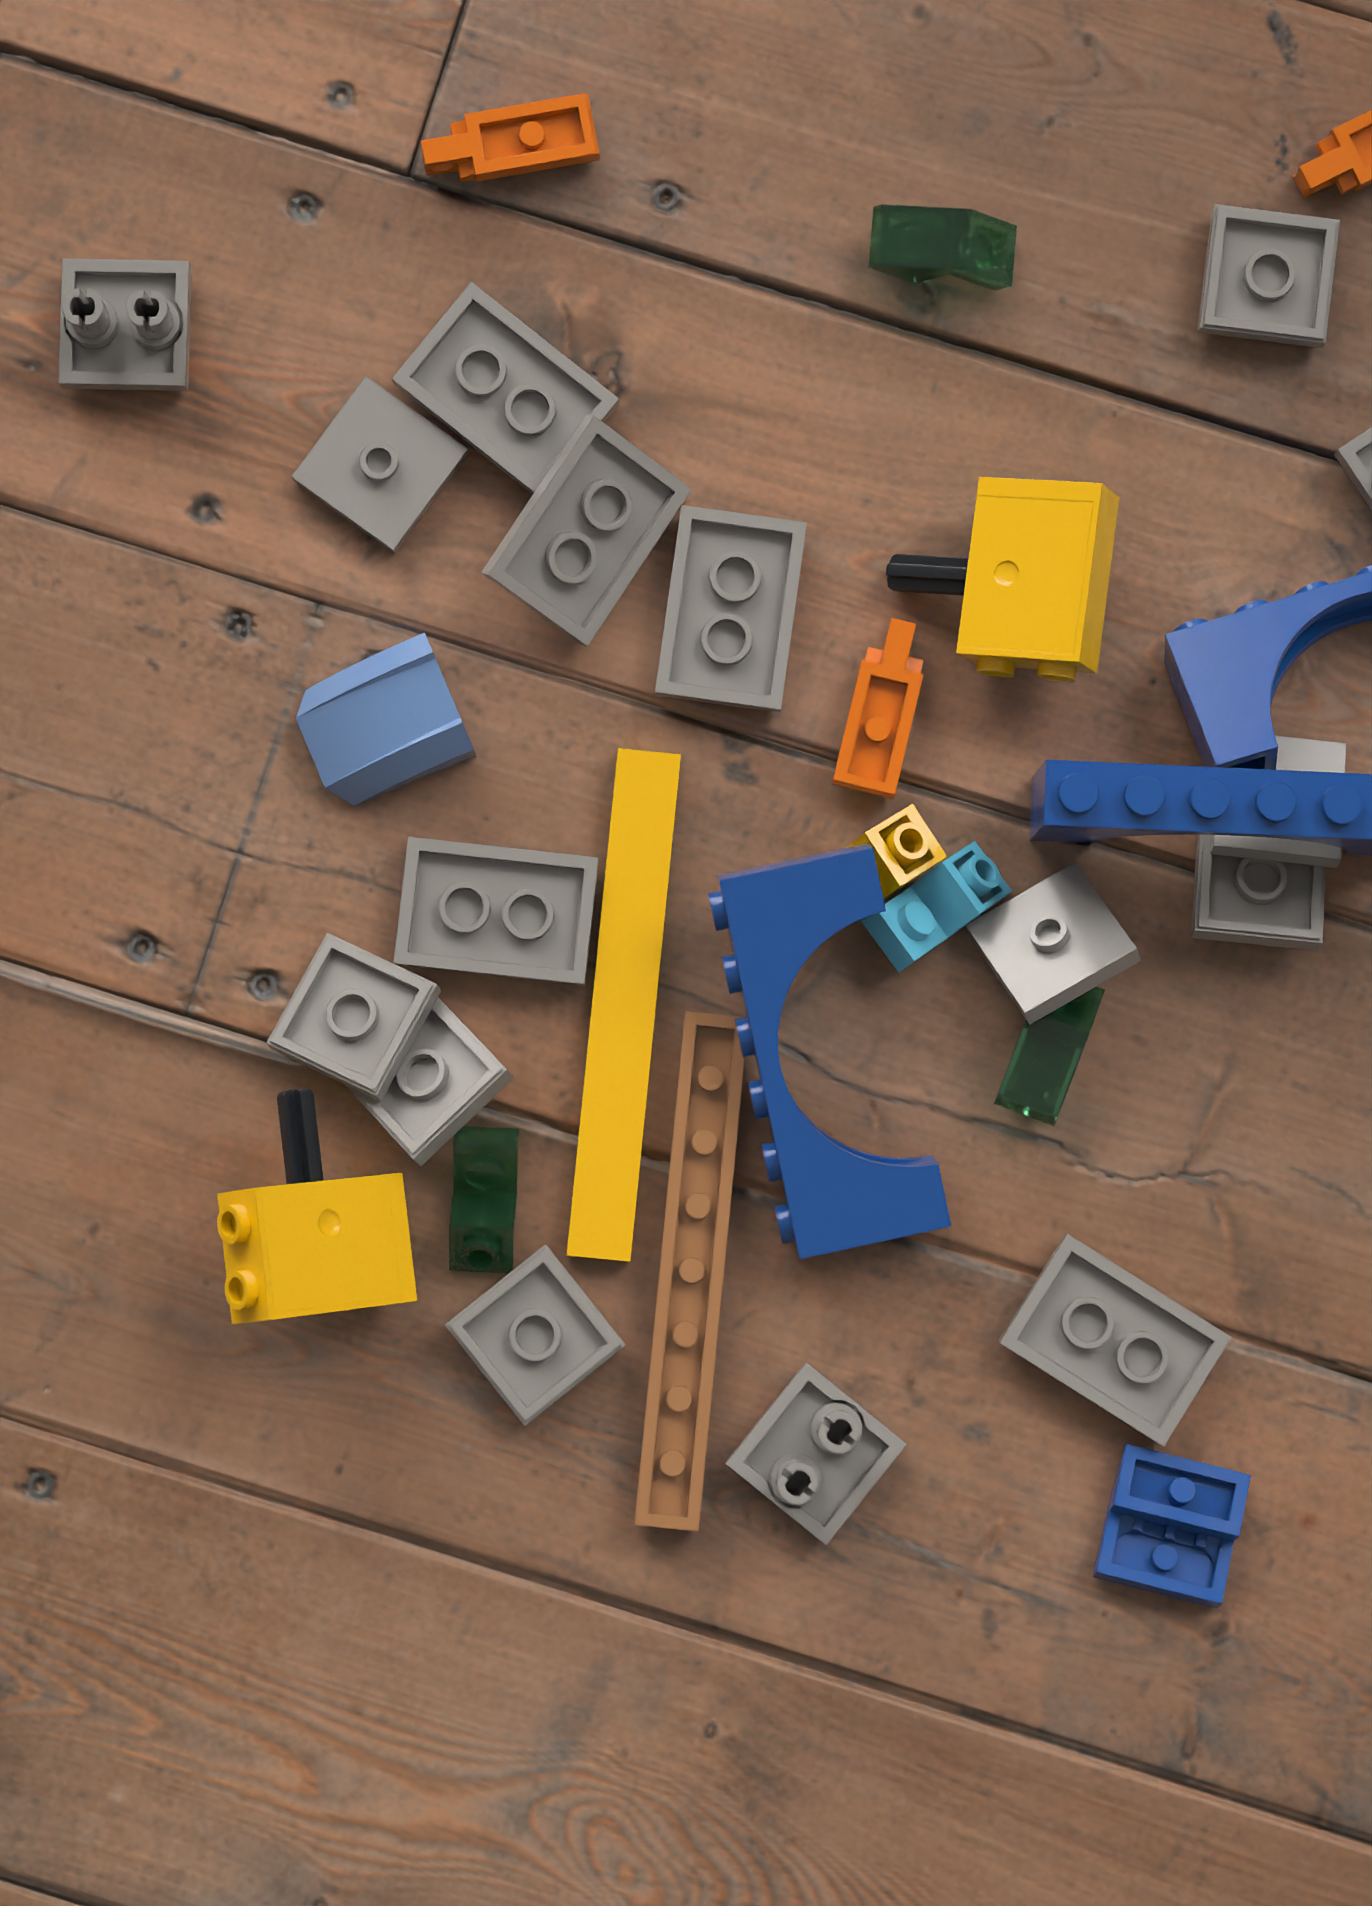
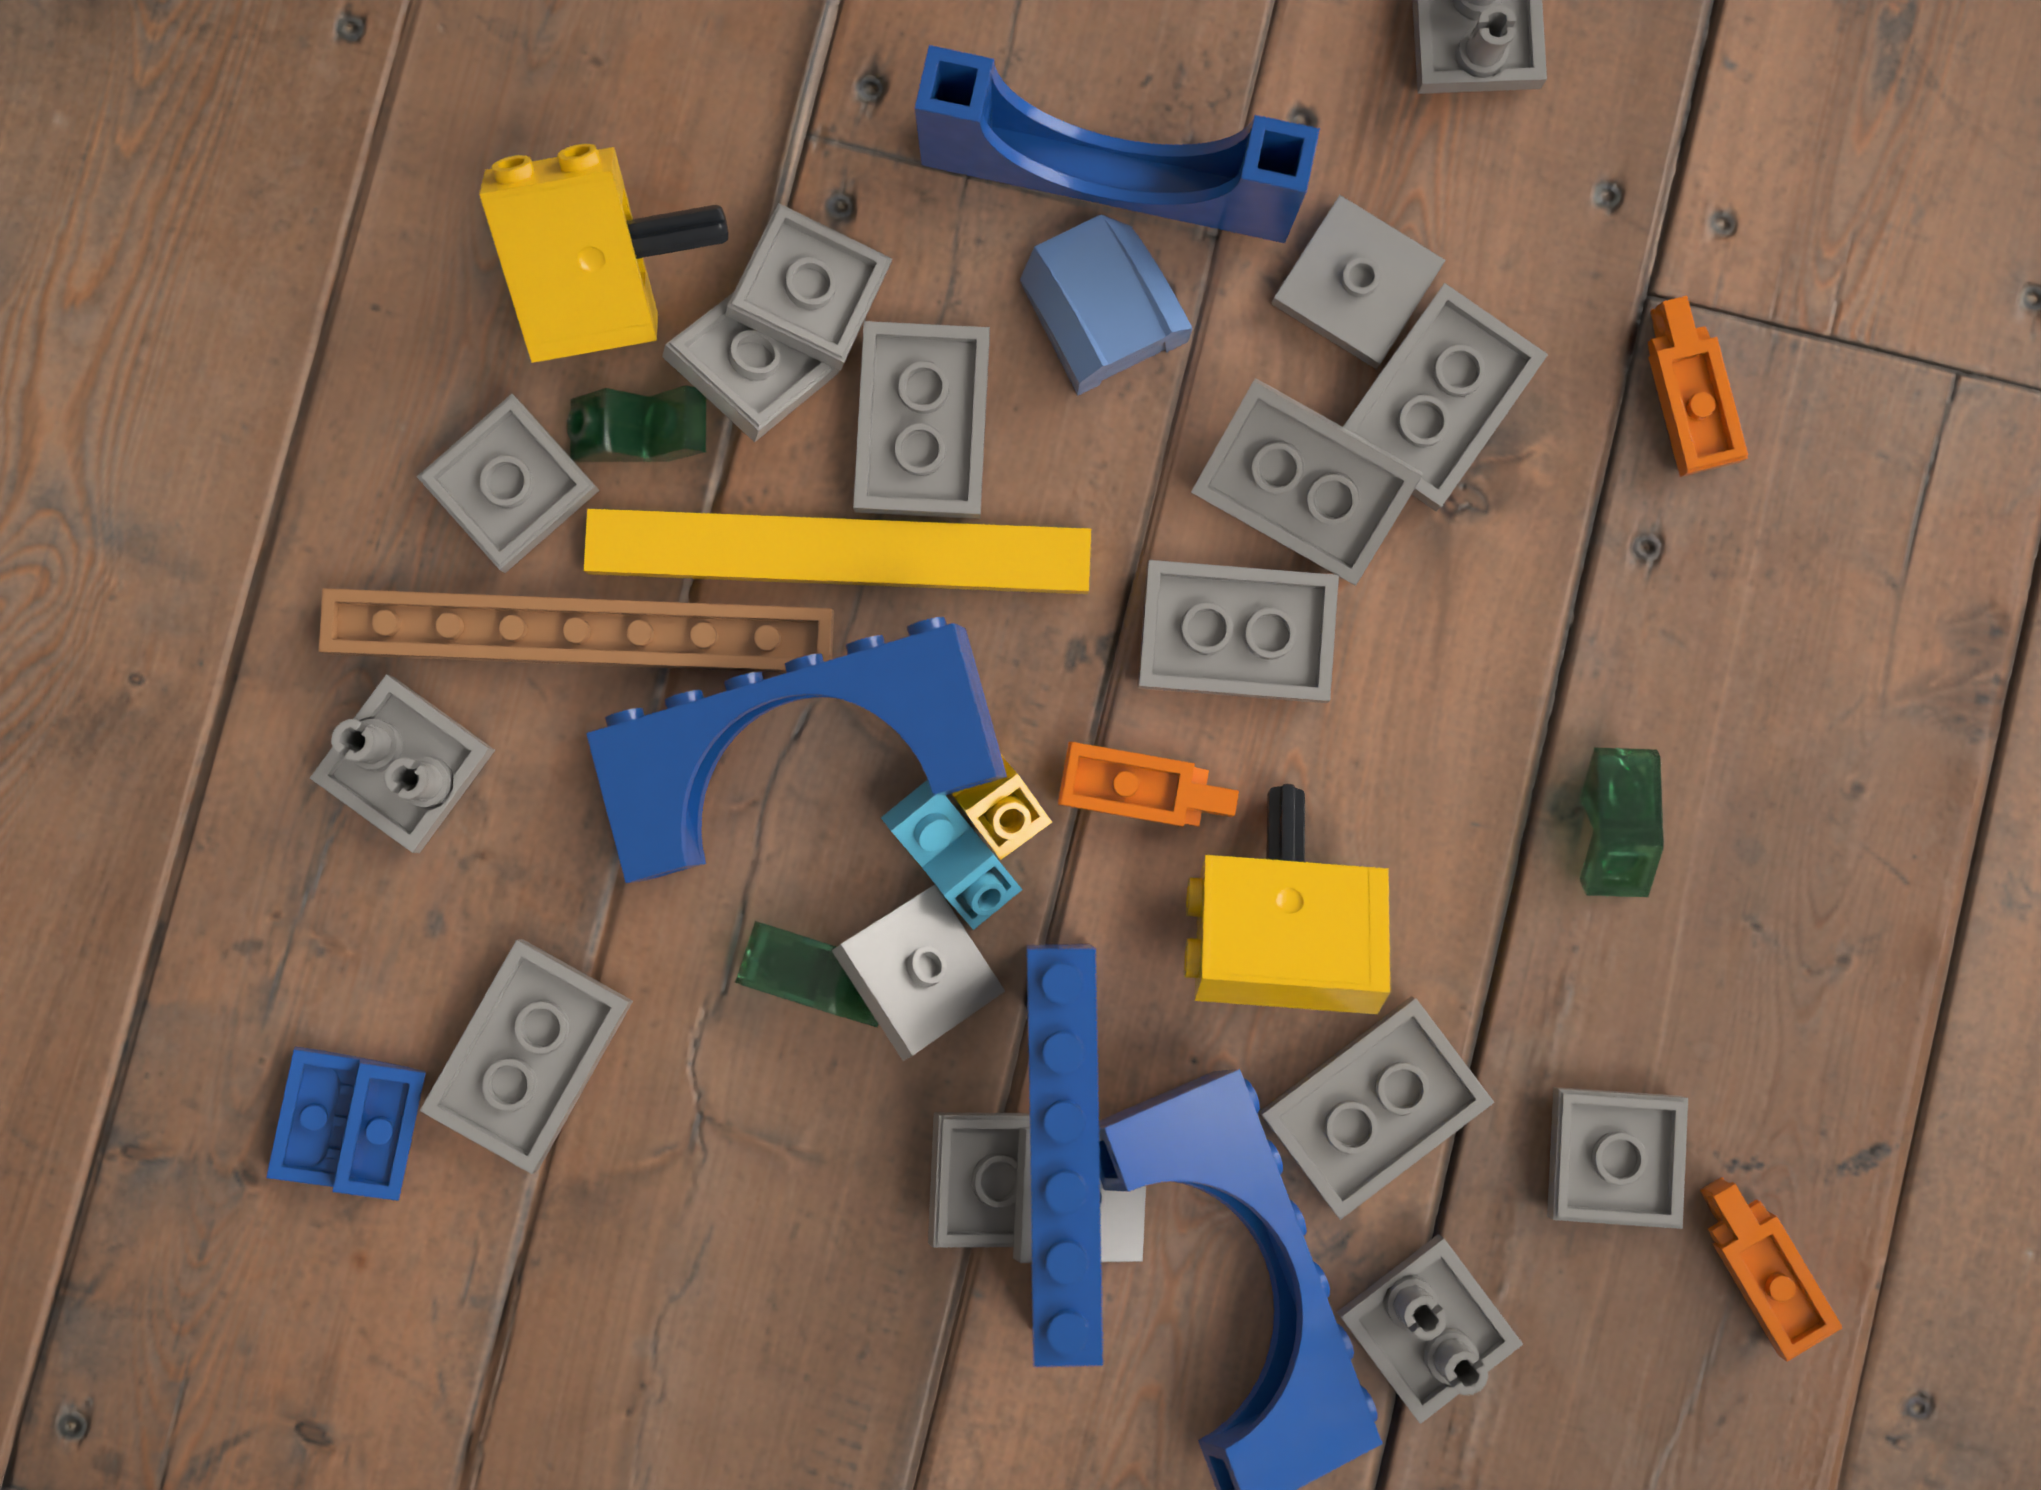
camera: 85 degrees right, 0 degrees up
(282, 575) = (986, 131): none -> blue arch
(1208, 505) = (1376, 1107): none -> light grey plate

